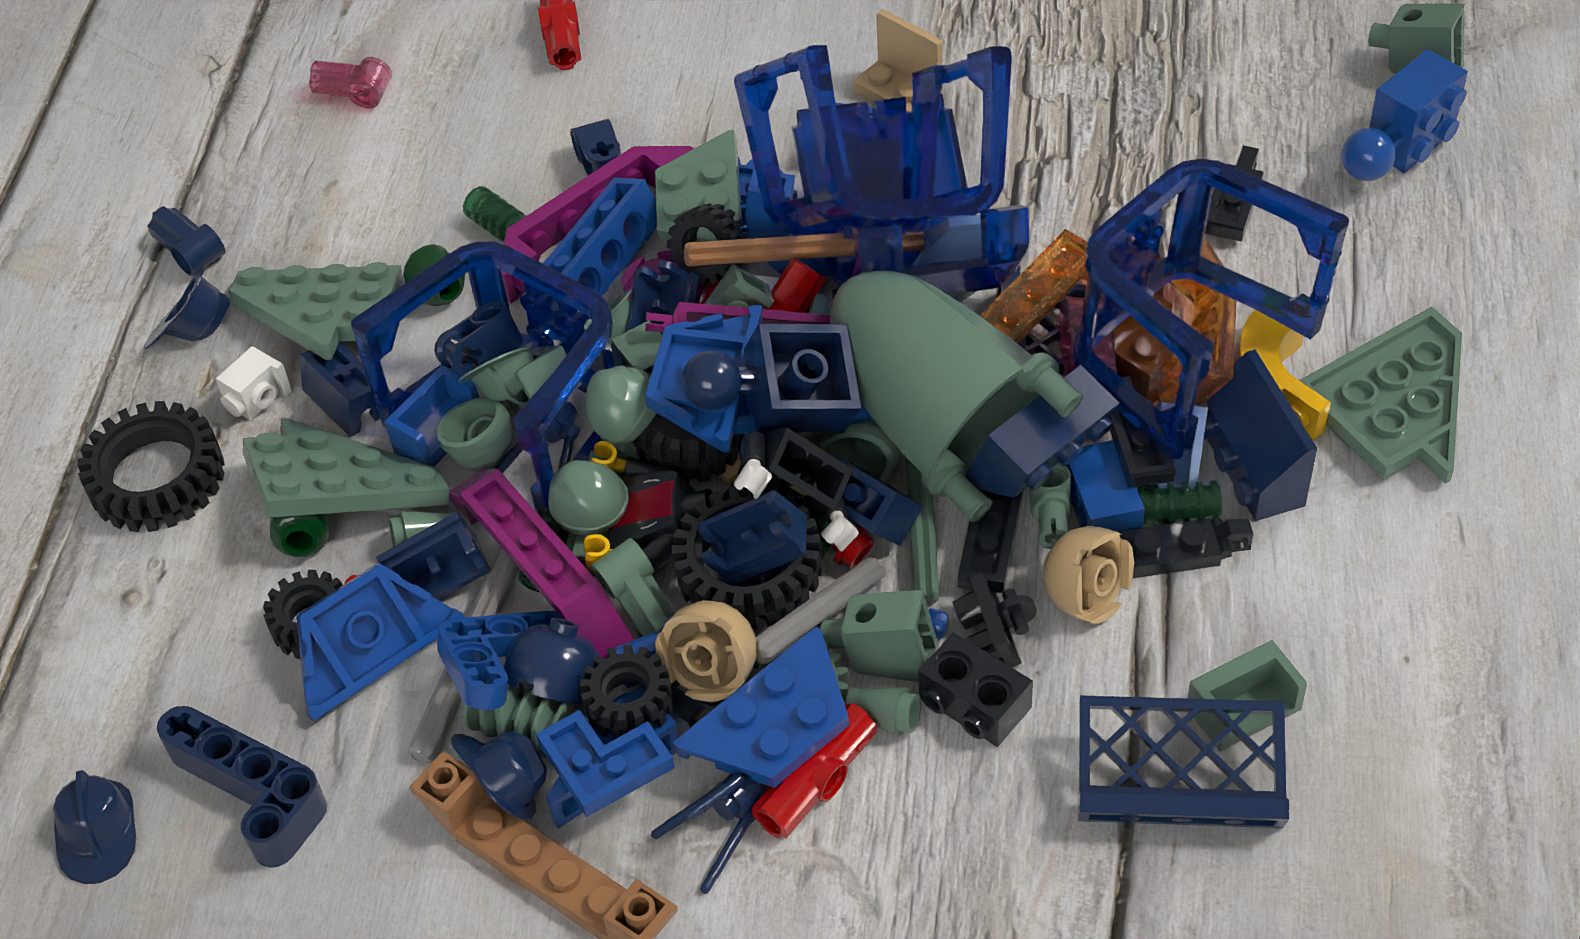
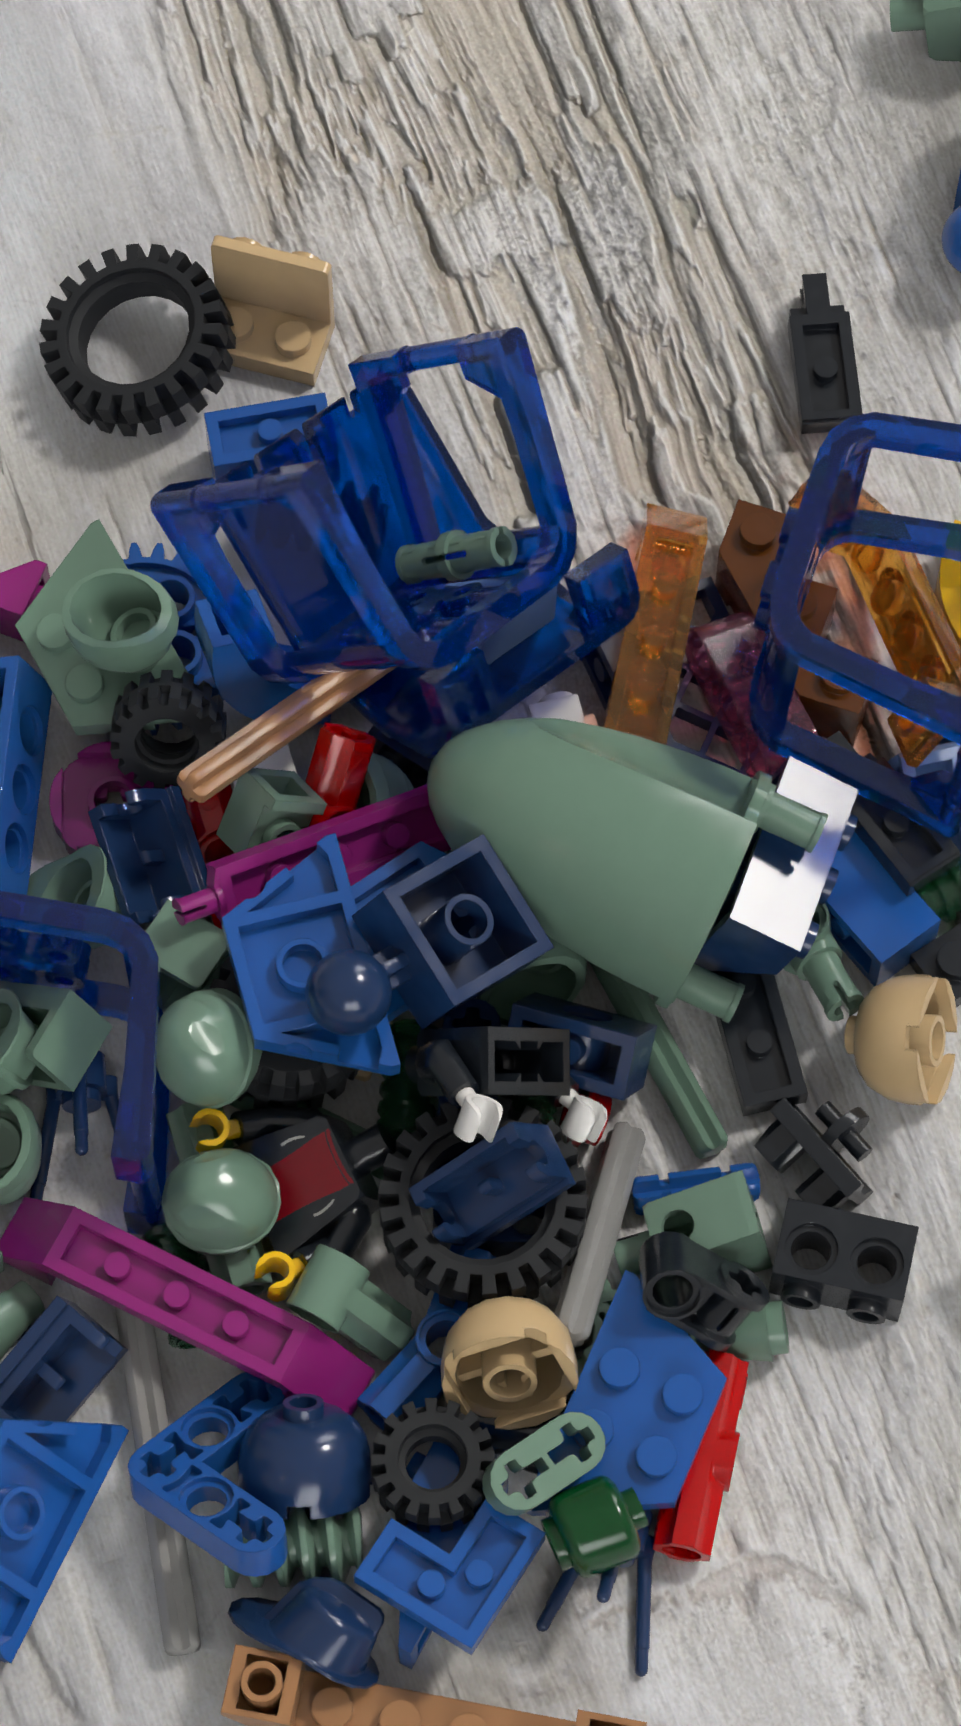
camera: 30 degrees left, 15 degrees up
(689, 700) = (552, 1476): none -> sand green beam
(705, 169) = (120, 620): none -> sand green hat
(706, 765) = (594, 1526): none -> dark green head
(836, 33) = (167, 392): none -> black tyre
(858, 657) = (706, 1294): none -> black piece
(929, 188) = (483, 551): none -> sand green pin

